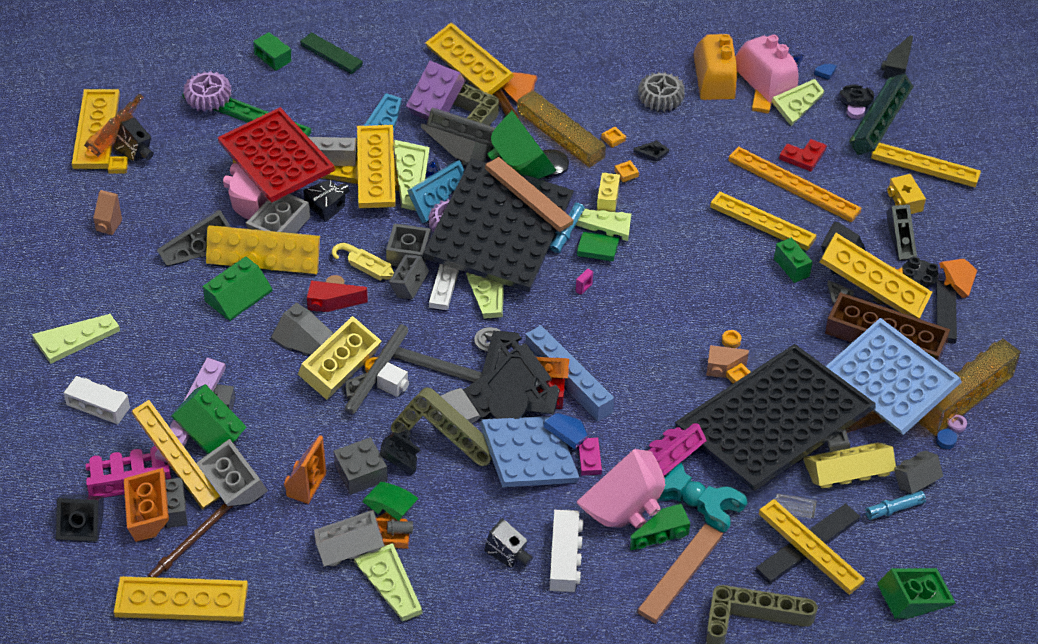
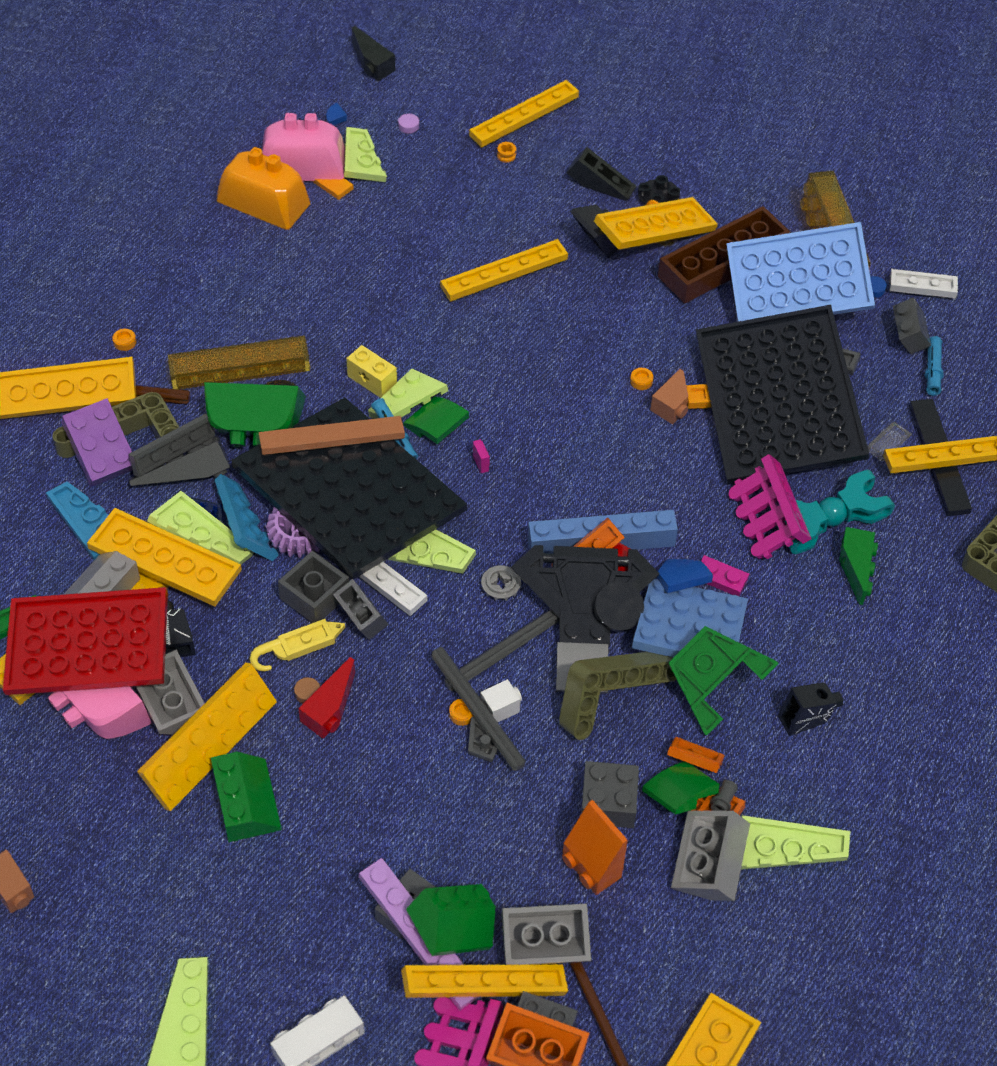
camera: 60 degrees left, 5 degrees up
(192, 241) = (126, 800): dark grey wedge -> none
(300, 330) = (372, 754): dark grey wedge -> none
(339, 357) = (441, 736): light yellow brick -> none
(400, 451) = (615, 744): black slope -> none
(423, 499) = (696, 754): none -> orange tile
(489, 465) = (706, 663): none -> green wing
(520, 85) = (147, 366): orange slope -> none
(536, 68) = (124, 339): none -> light orange tile
(564, 551) = (840, 660): white brick -> none
(613, 137) = (284, 327): light orange tile -> none
(626, 171) = (347, 340): light orange plate -> none
(626, 491) = (817, 562): bright pink hips -> none
(652, 150) = (333, 304): black piece -> none
(661, 91) = (256, 248): light grey gear -> none
(680, 573) = (920, 578): nougat tile -> none
(793, 260) = (578, 274): green brick -> none
(795, 184) = (468, 221): light orange tile -> none
(804, 158) = (439, 193): red plate -> none
(835, 289) = (644, 265): dark grey piece -> none
(850, 464) = (874, 368): light yellow slope -> none
(856, 95) = (392, 111): black tile -> none
(879, 169) = (506, 152): none -> light orange bush
(881, 114) = (437, 106): brick -> none
(905, 192) = (554, 146): yellow brick -> none
(946, 309) = (714, 199): black tile -> none
(960, 275) = (686, 167): orange slope -> none
(976, 467) = (923, 283): none -> white plate

